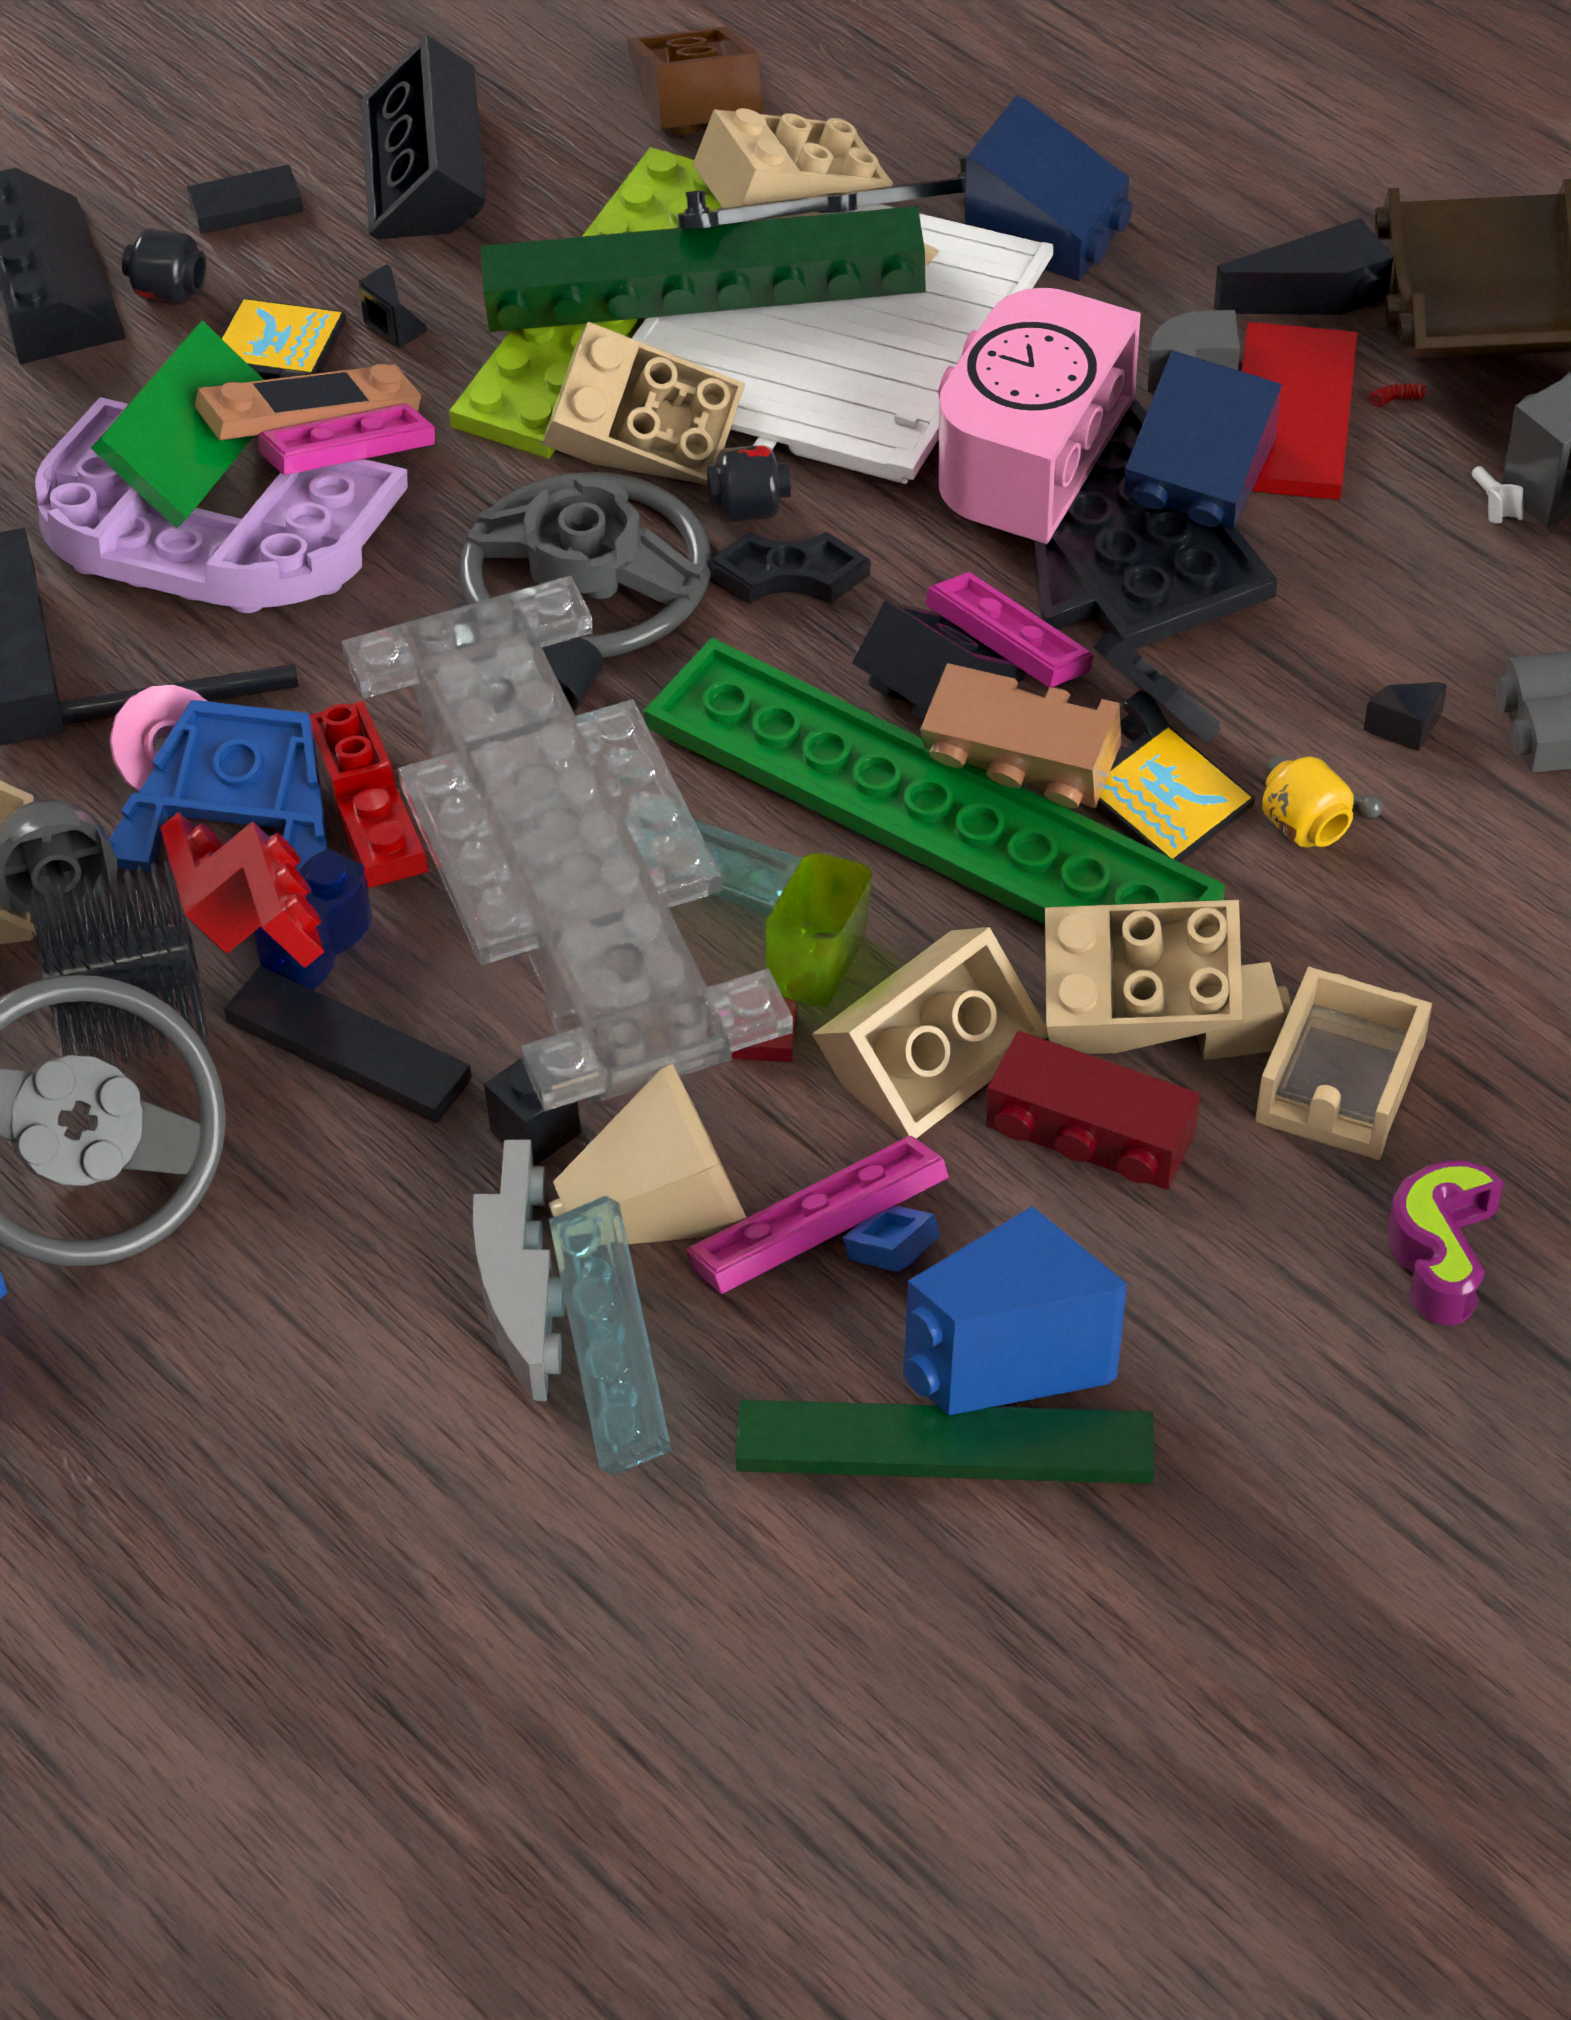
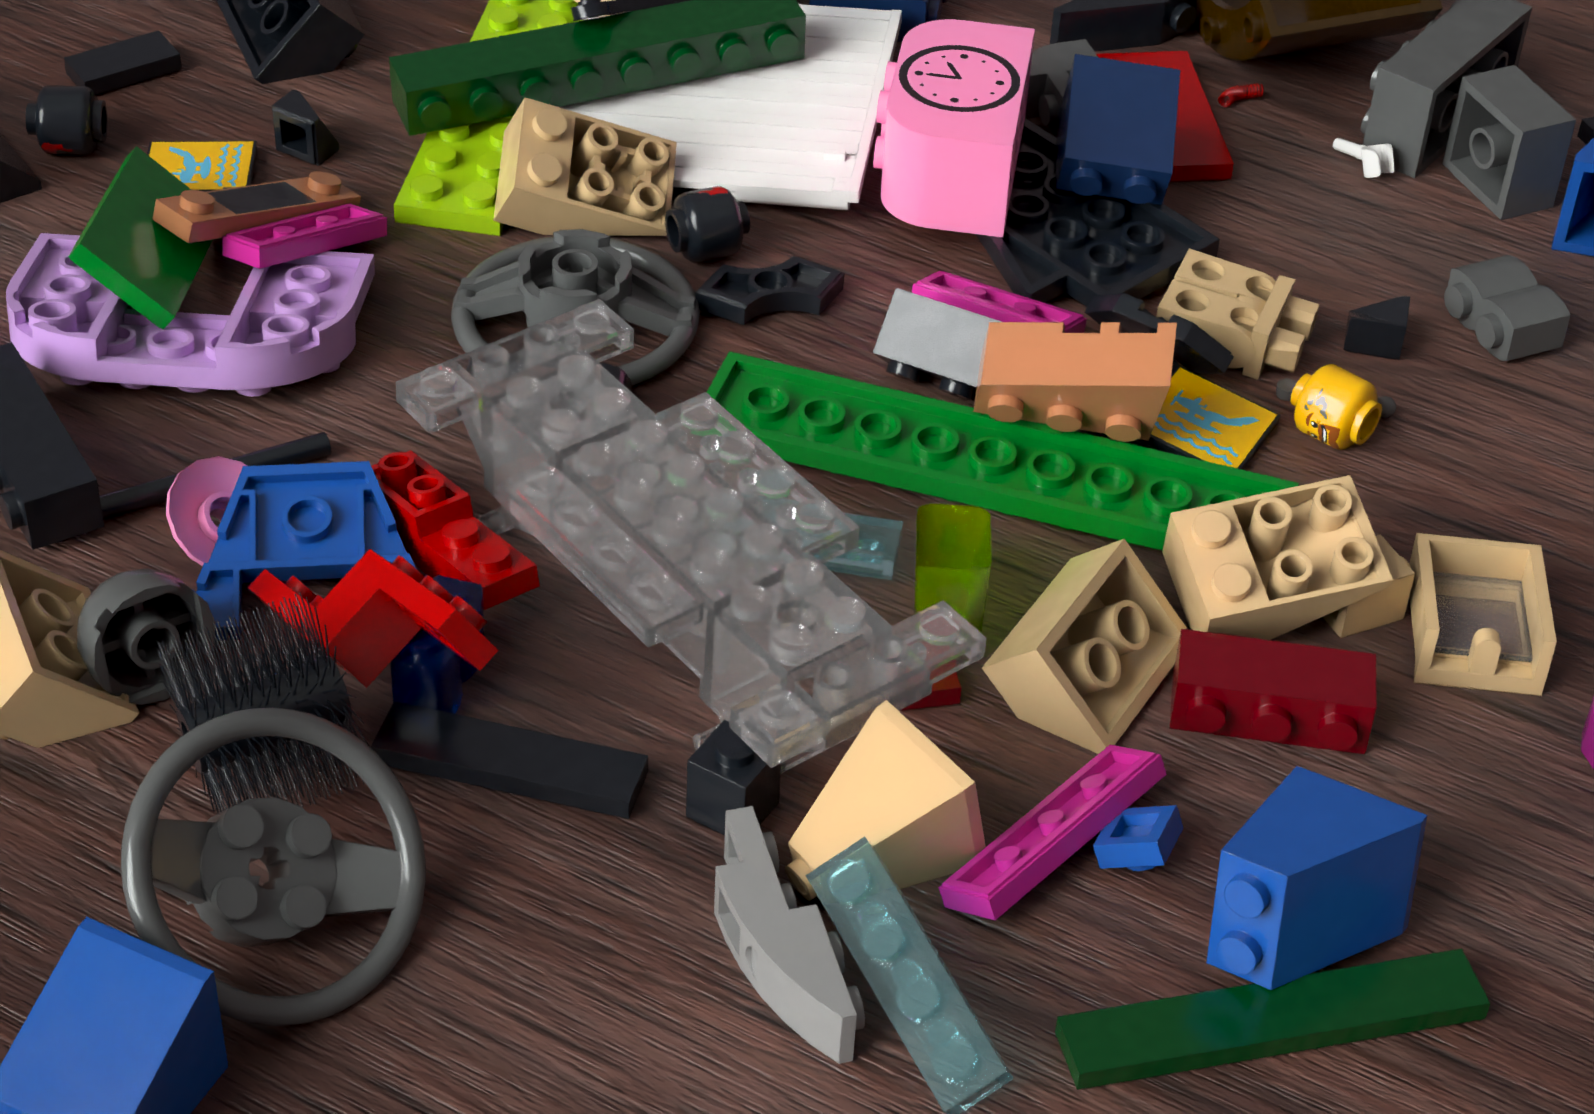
camera: 20 degrees left, 10 degrees down
(1252, 674) = (1242, 311): none -> tan hips

